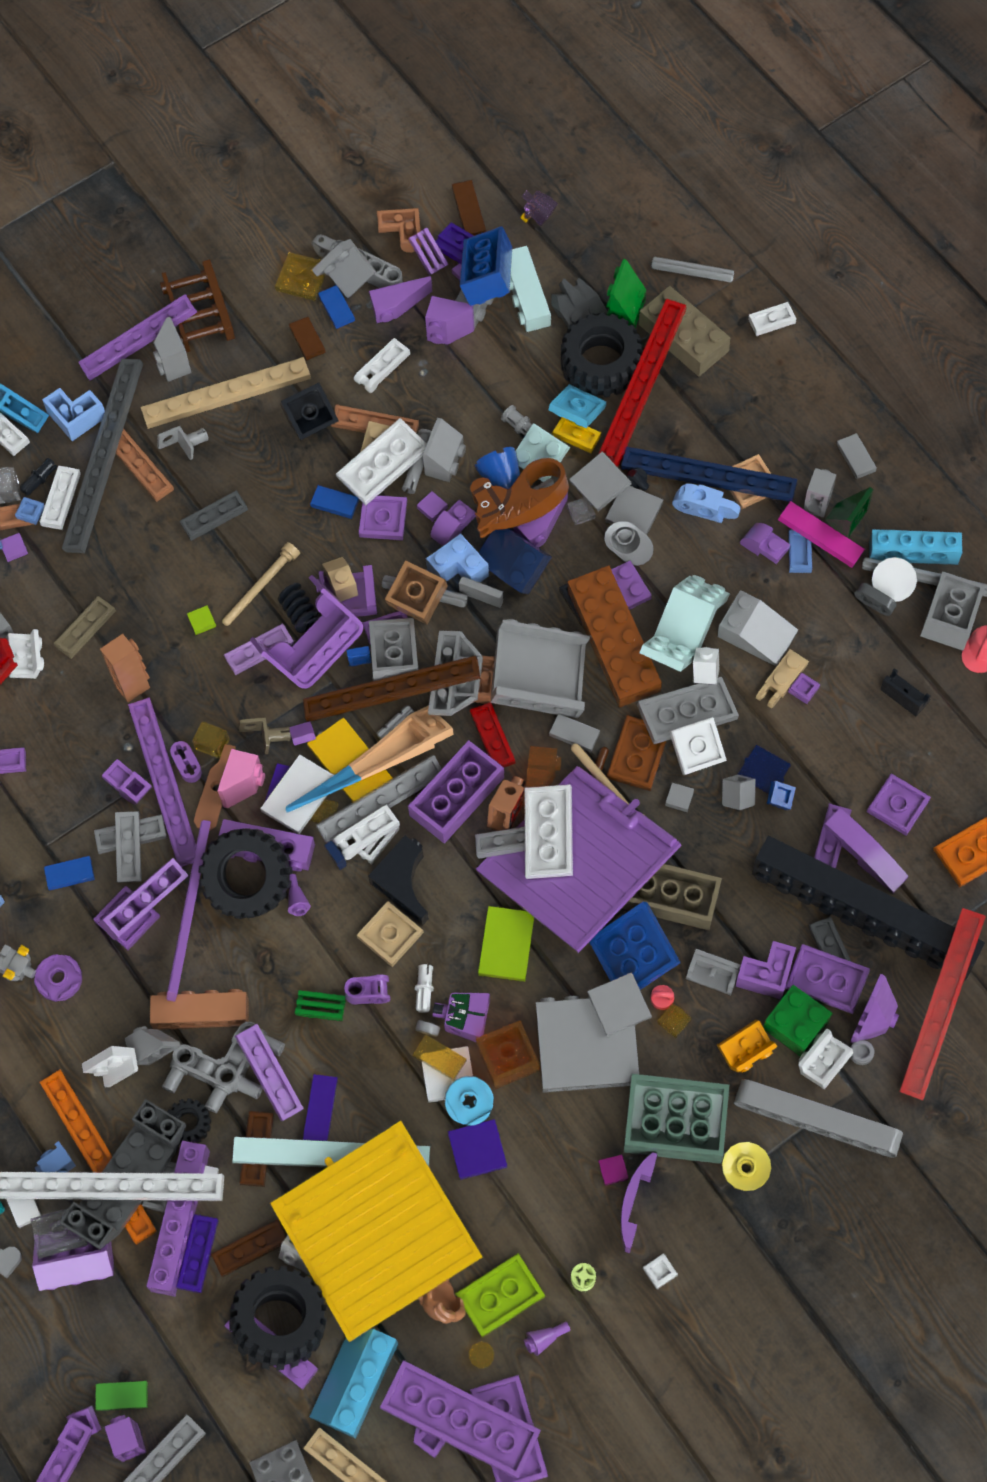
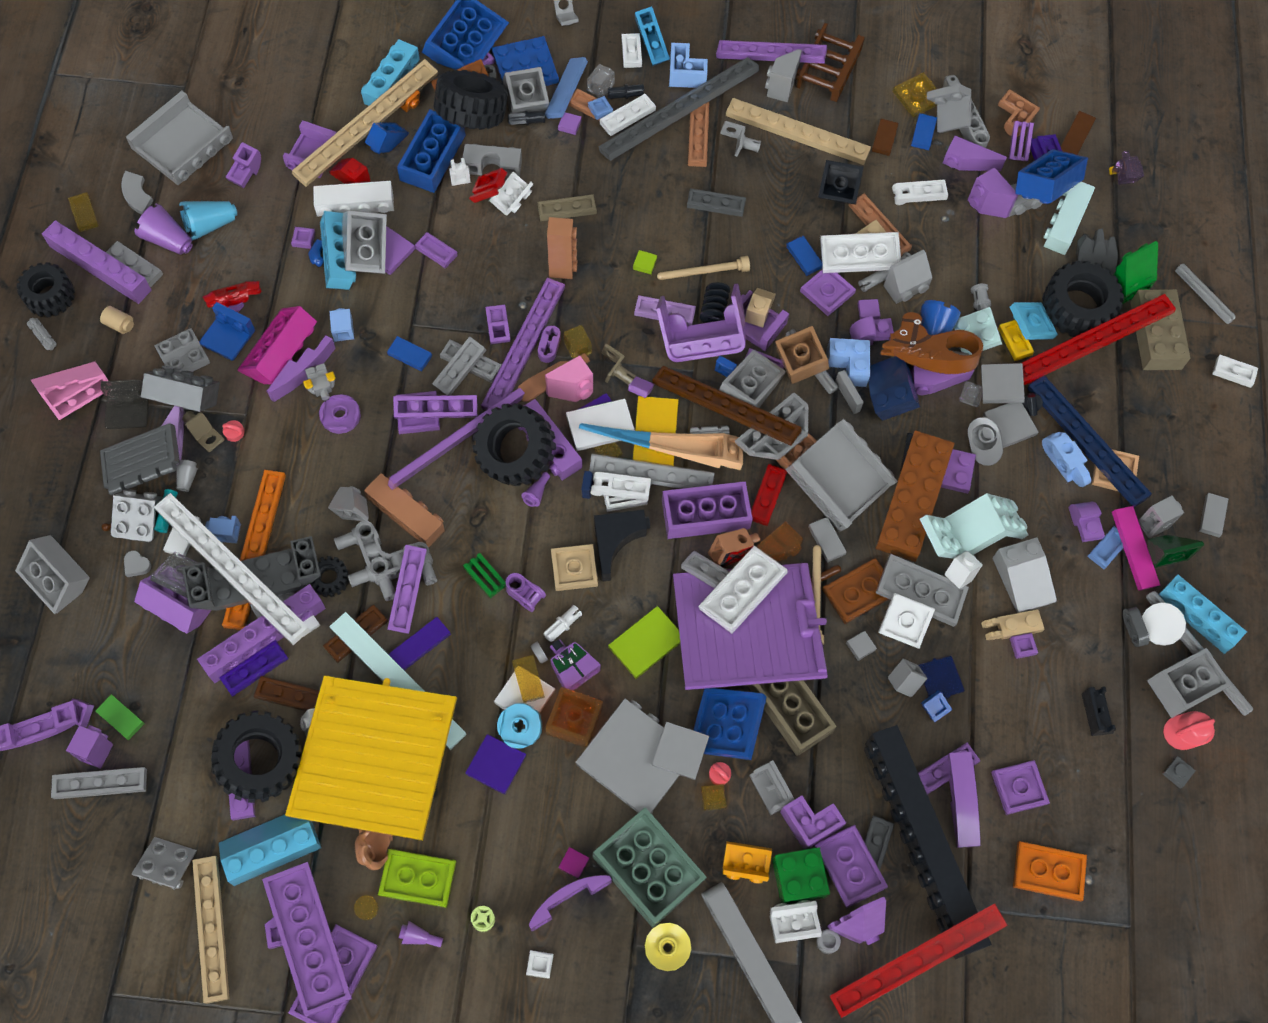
camera: 35 degrees right, 0 degrees up
(113, 1064) = (318, 497): white bracket -> none

